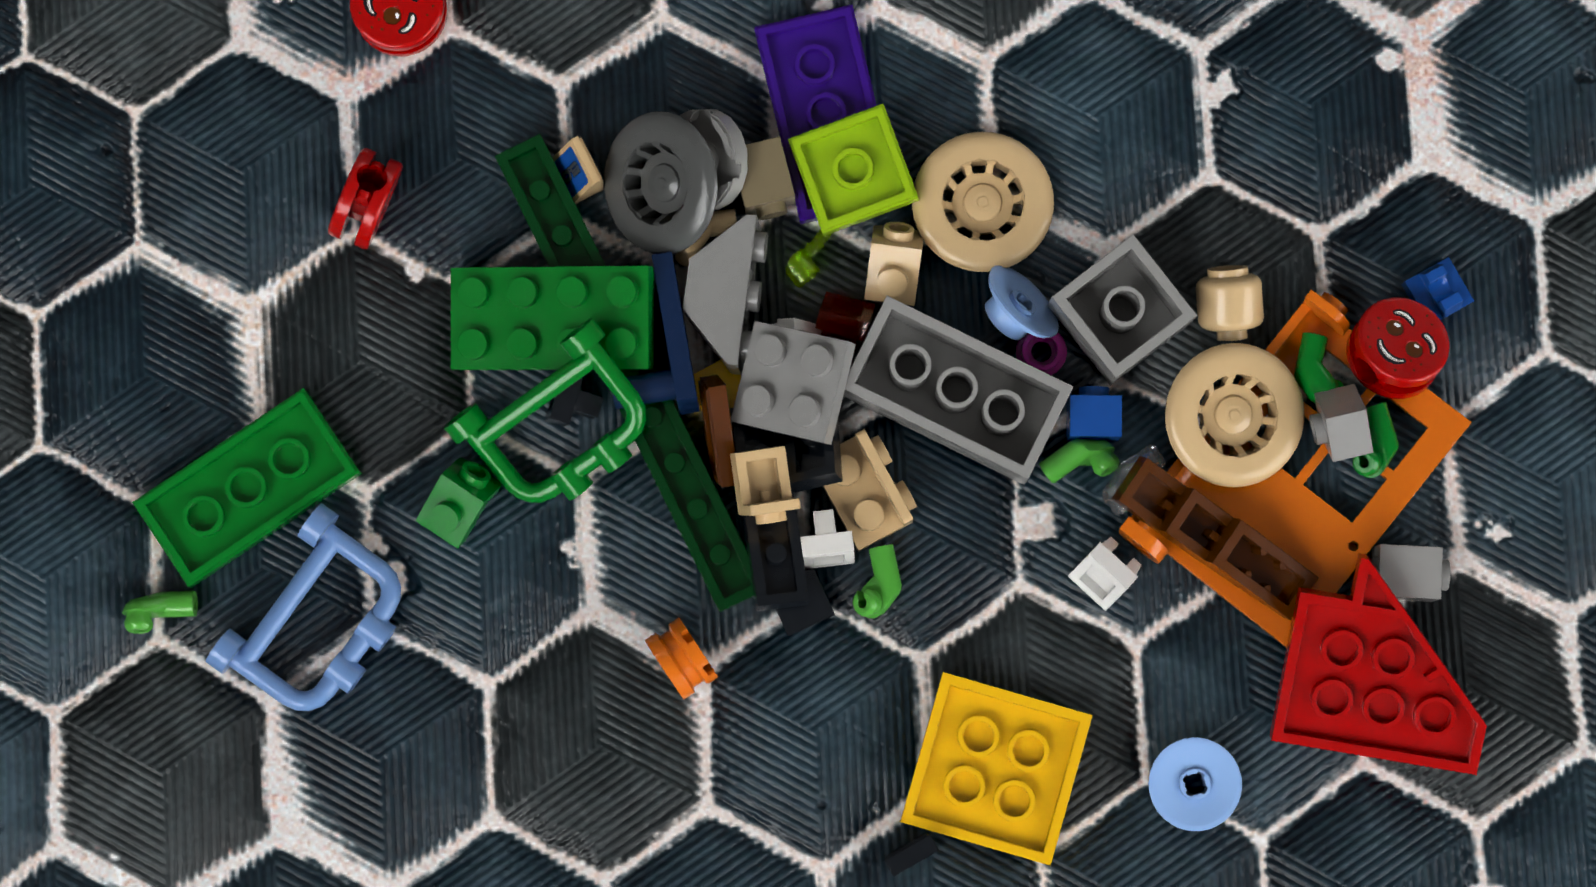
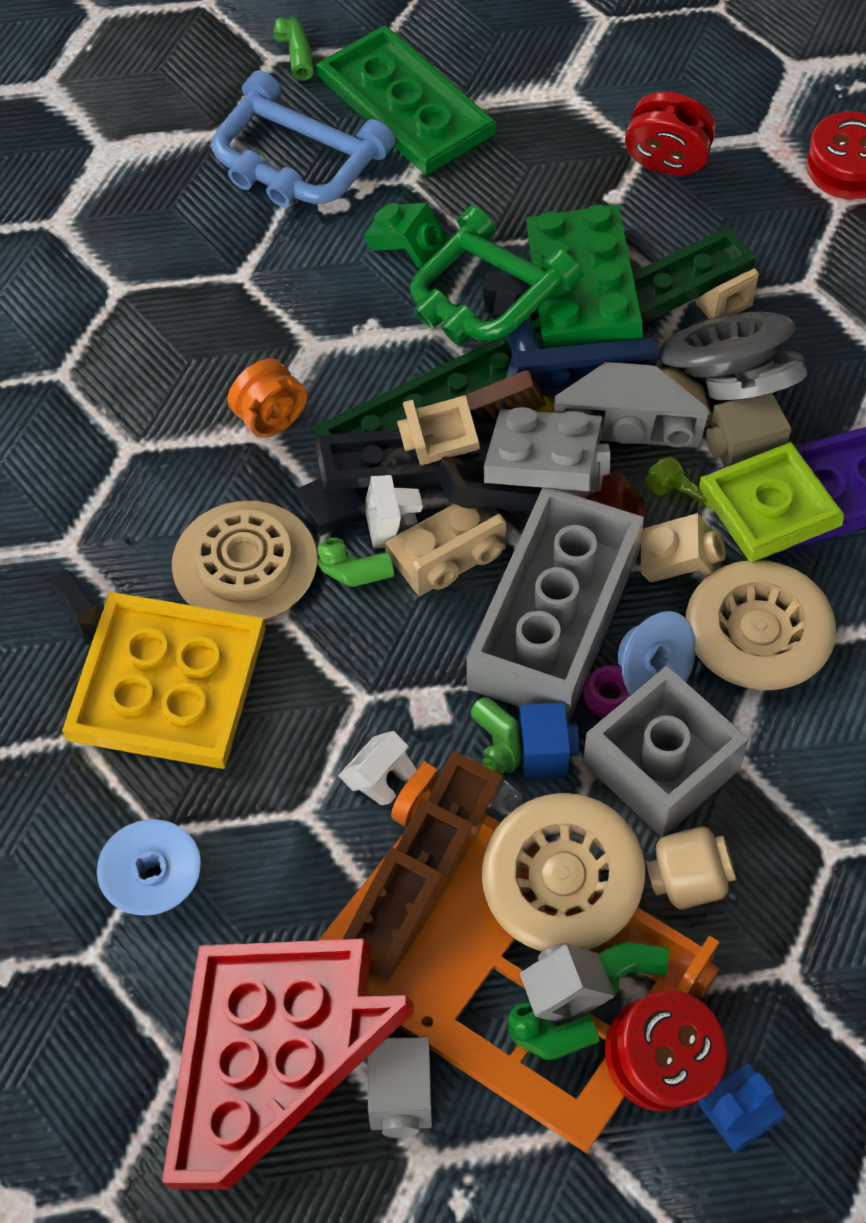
camera: 85 degrees right, 25 degrees down
(862, 691) = (241, 547): none -> tan wheel

